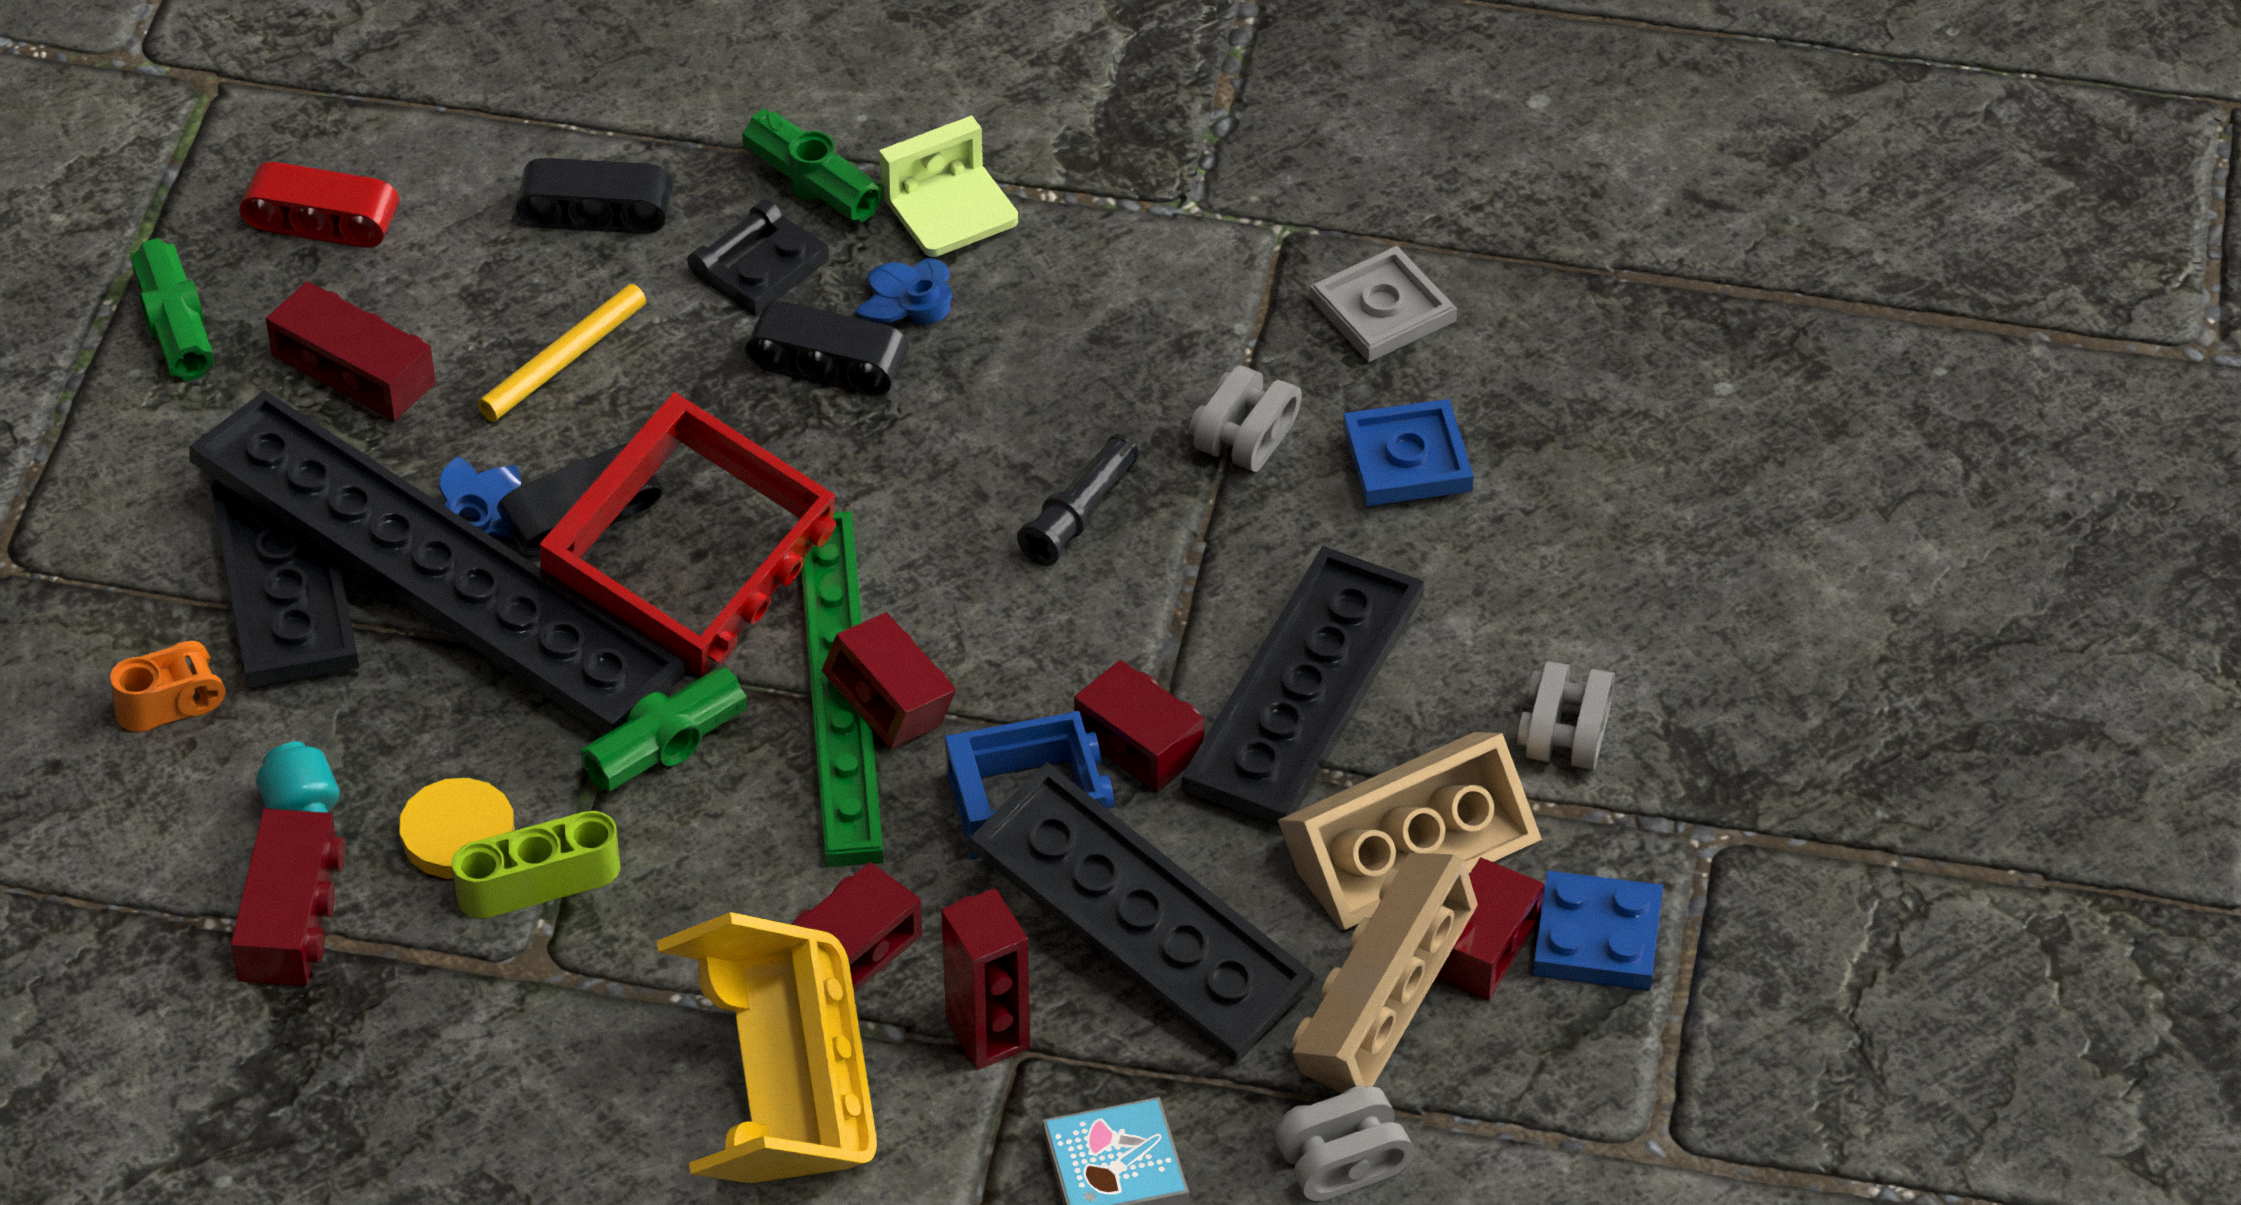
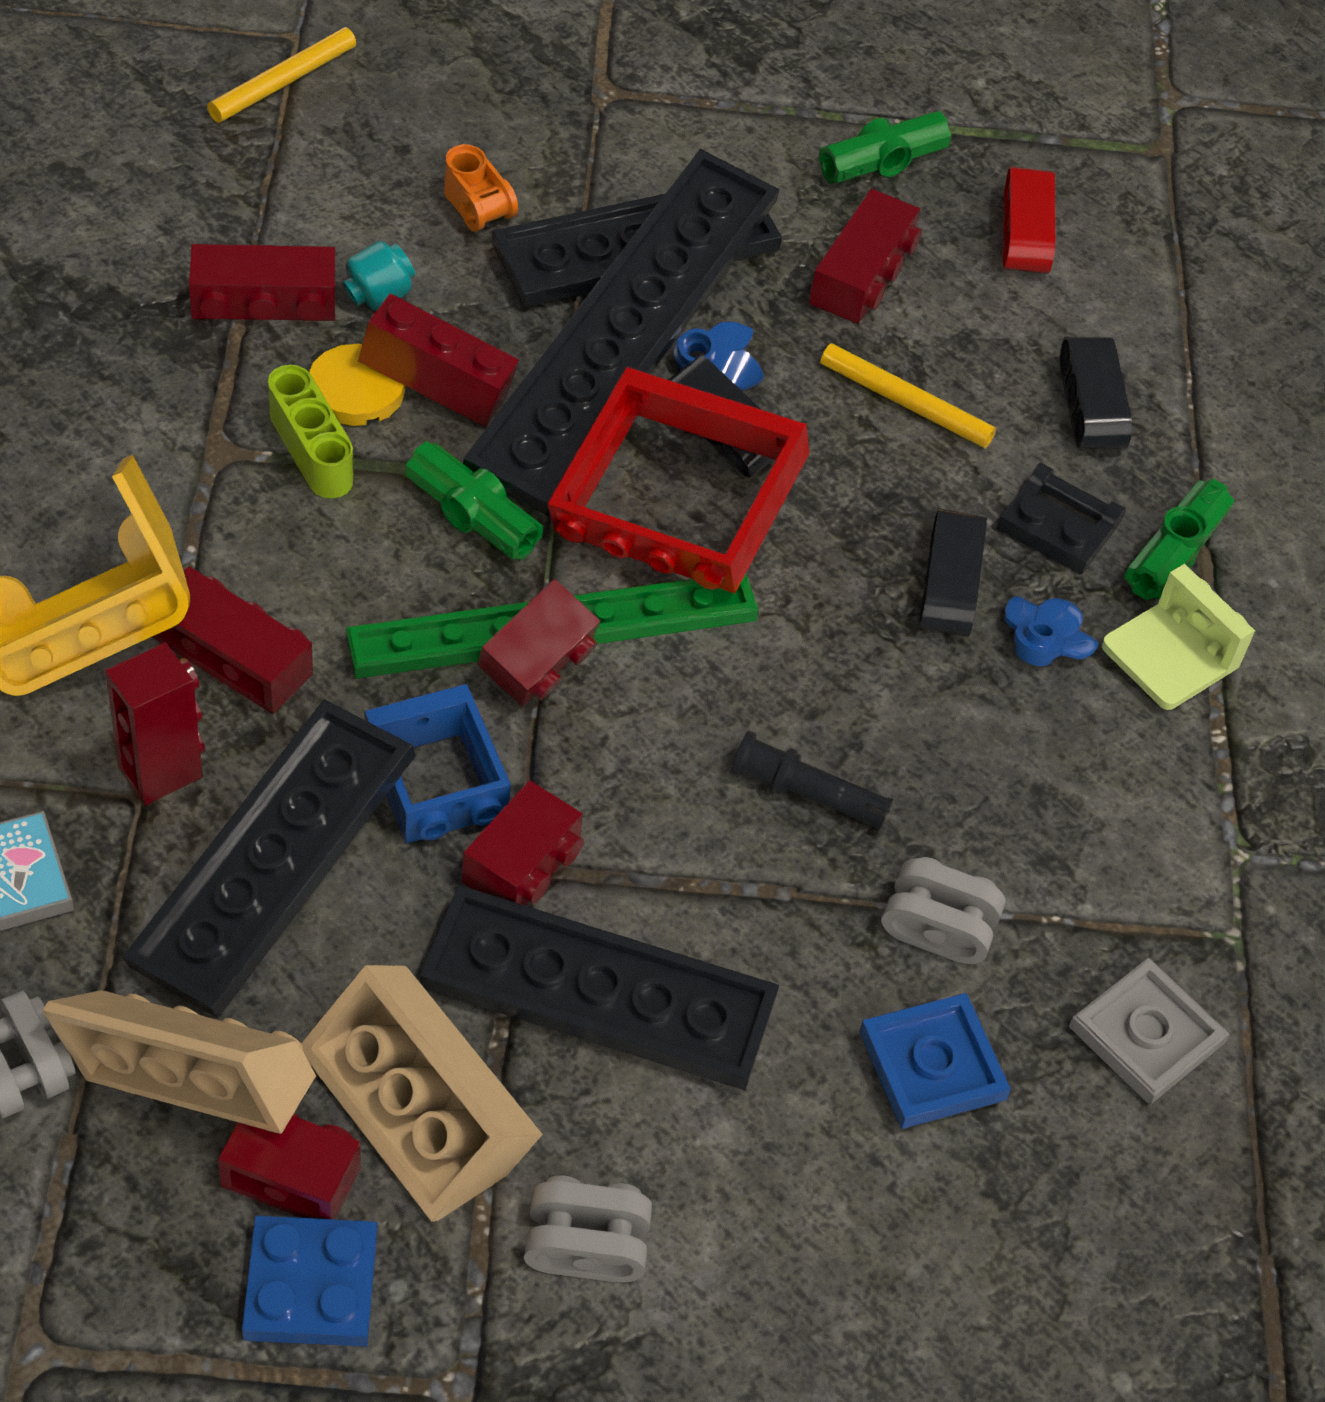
camera: 75 degrees right, 5 degrees up
(463, 730) = (437, 360): none -> dark red brick

